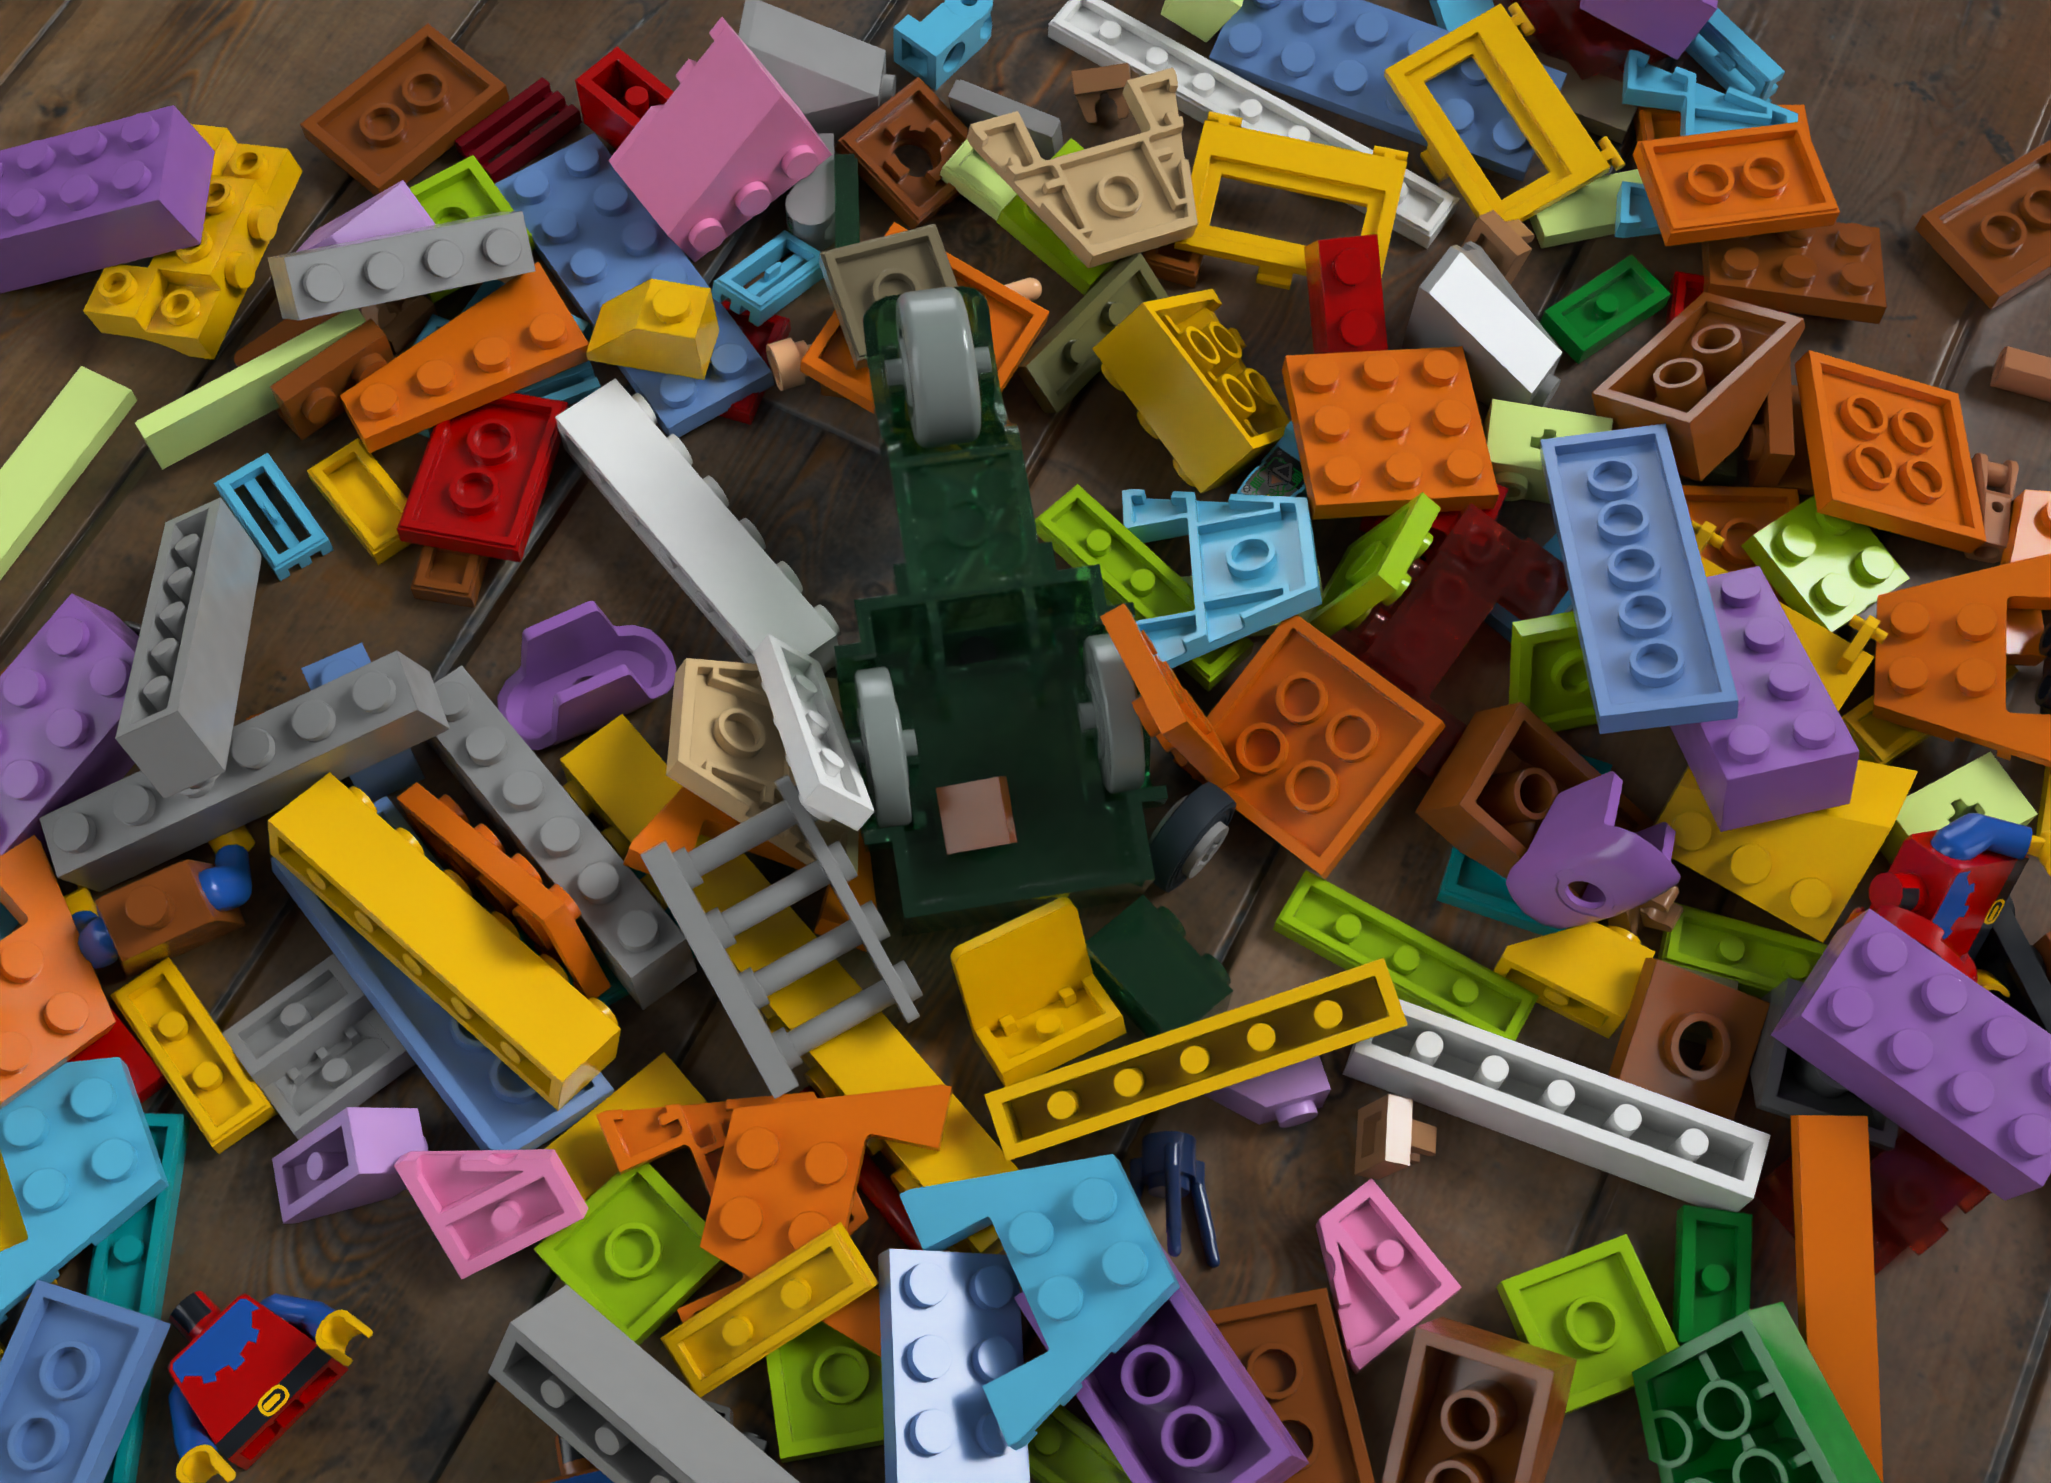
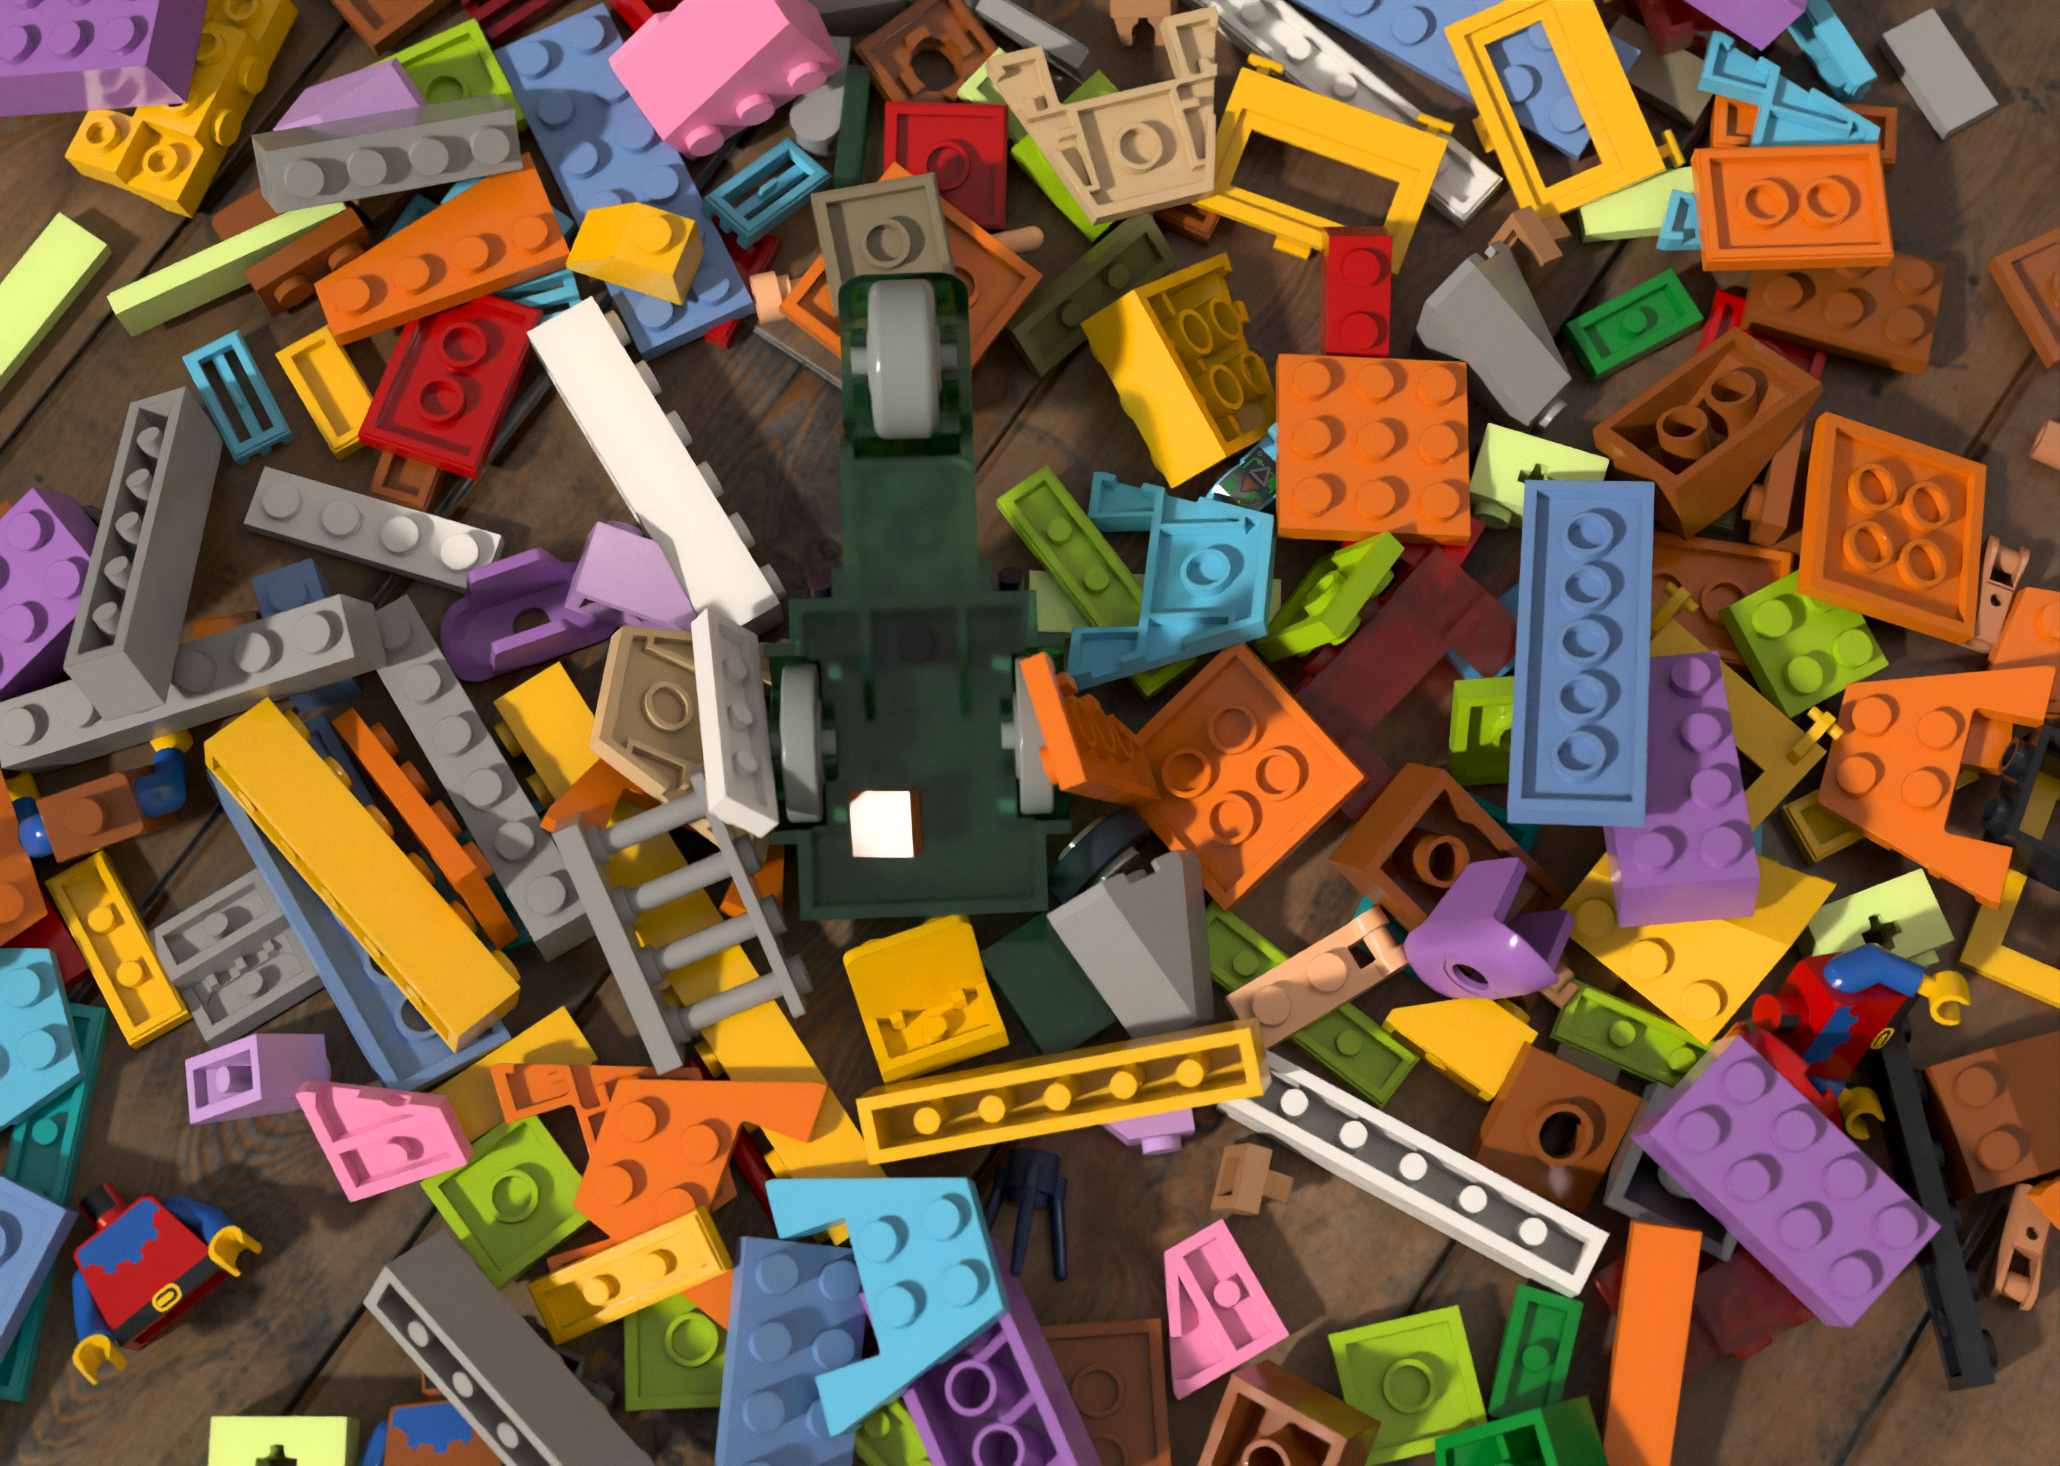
camera: 10 degrees right, 10 degrees up
(412, 622) = (369, 530): none -> white plate
(679, 623) = (628, 581): none -> lavender slope
(957, 205) = (961, 145): none -> red tile
(1248, 909) = (1145, 945): none -> light grey slope
(1431, 925) = (1319, 979): none -> light nougat plate
(1832, 75) = (1937, 74): none -> light grey tile

